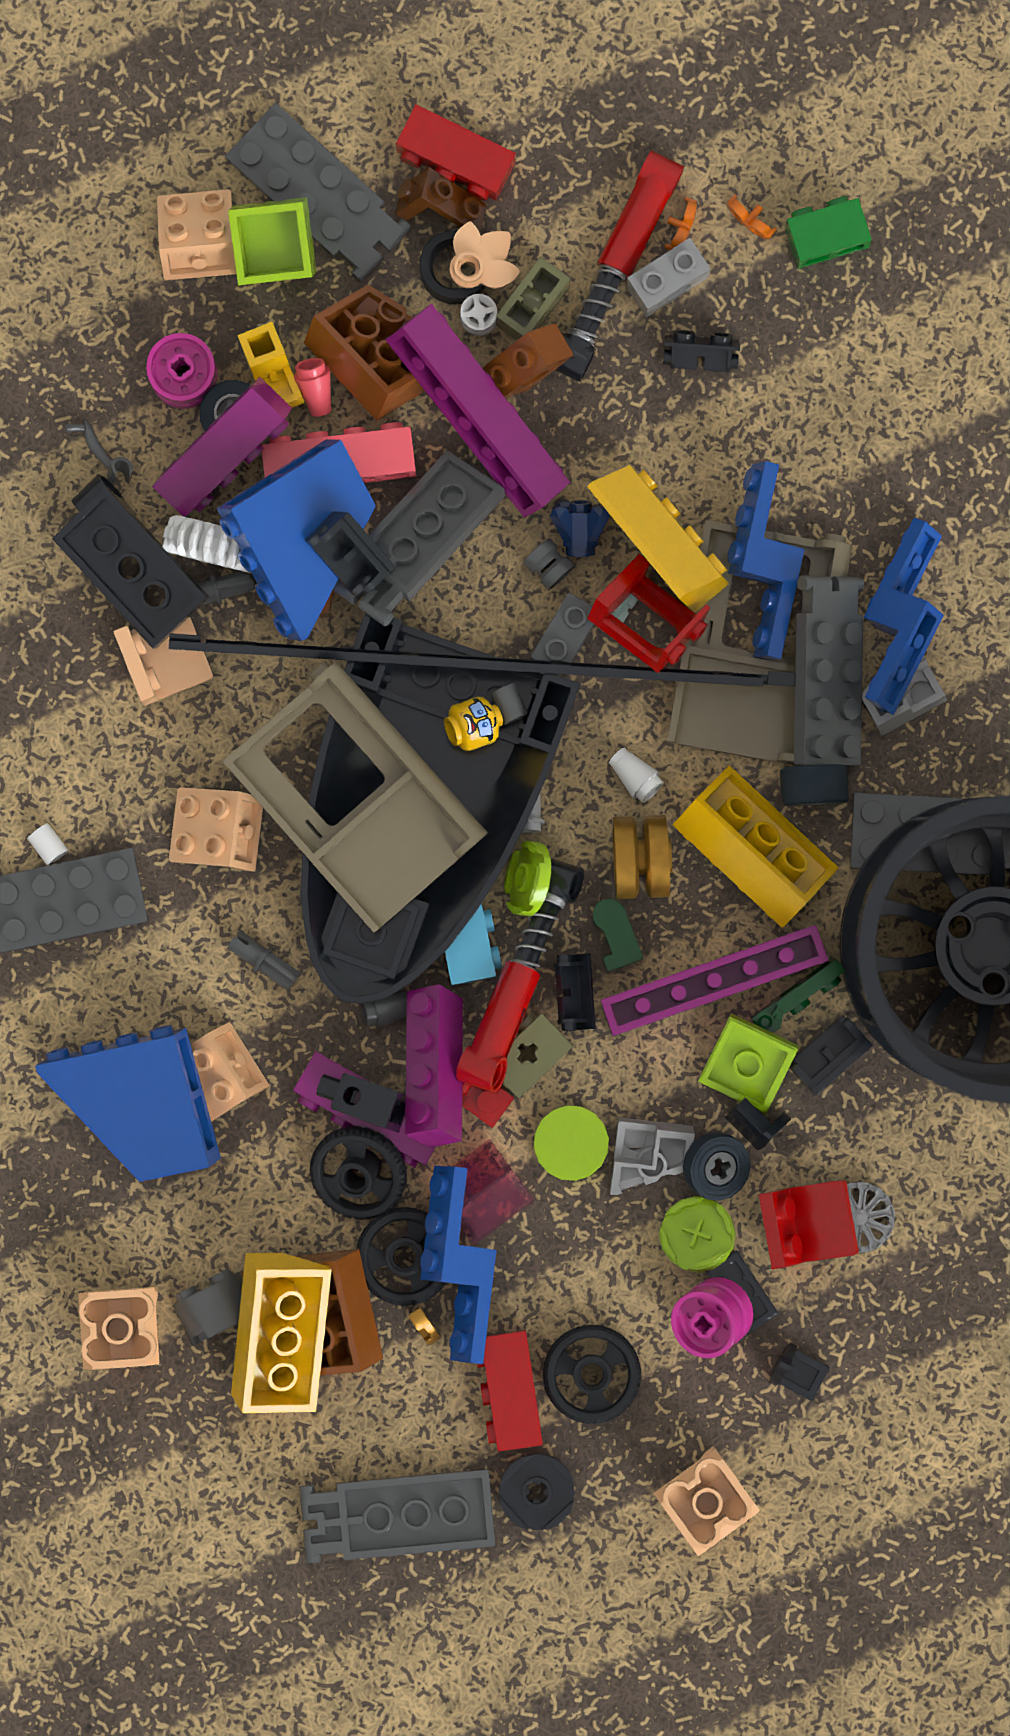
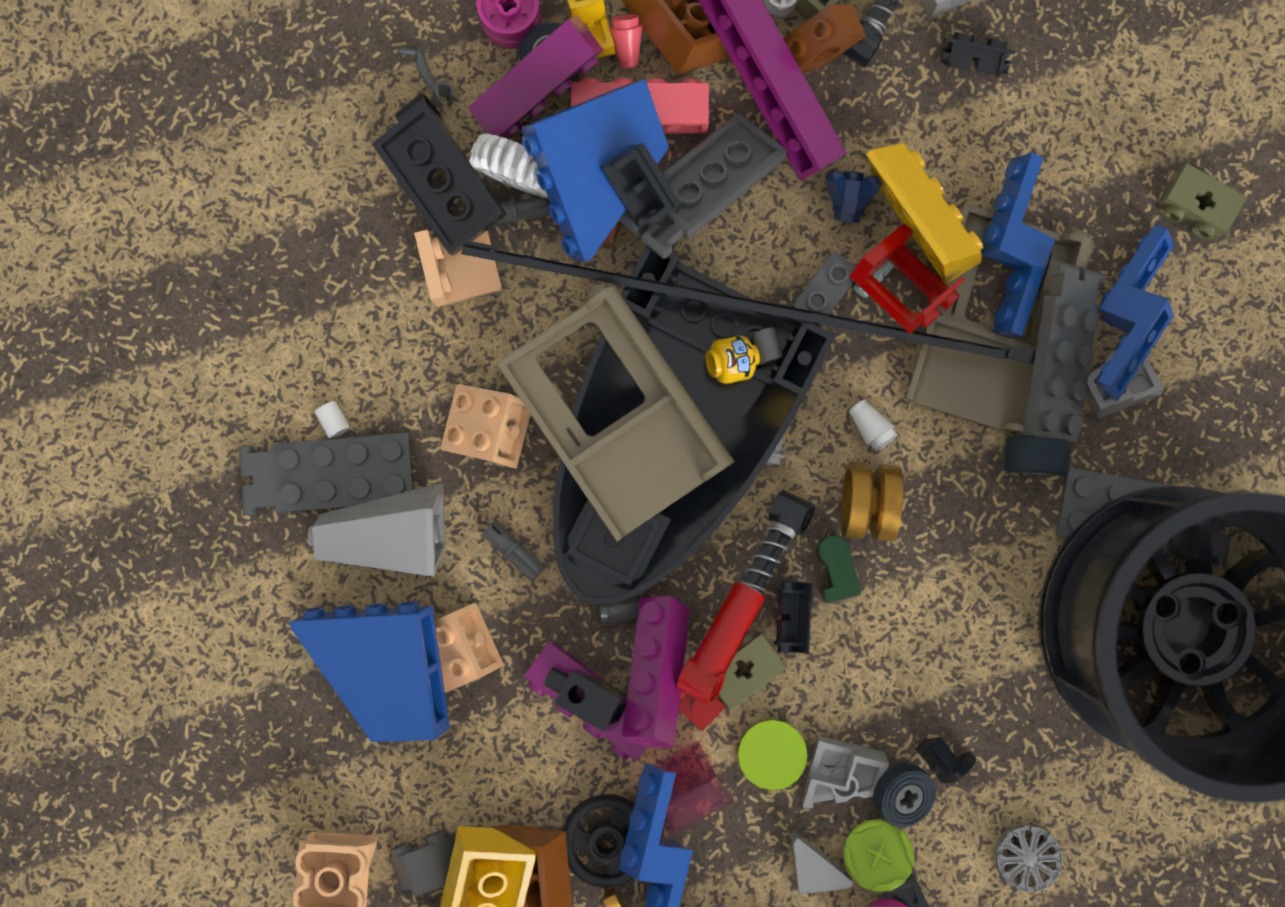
camera: 10 degrees right, 0 degrees up
(124, 957) = (385, 533): none -> light grey slope
(356, 1141) = (562, 770): black wheel -> none
(470, 954) = (703, 570): medium azure slope -> none
(528, 878) = (764, 508): lime tile -> none
(542, 558) = (812, 219): dark grey wheel -> none
(629, 1257) = (814, 870): none -> light grey slope
(714, 980) = (924, 624): magenta brick -> none
(748, 1063) = (944, 702): lime tile -> none
(755, 846) = (974, 506): yellow slope -> none
(796, 997) = (996, 646): dark green hinge -> none
(808, 1223) = (985, 861): red bracket -> none
(830, 1055) = (1020, 705): black hinge -> none
(981, 481) = (1200, 202): none -> olive brick

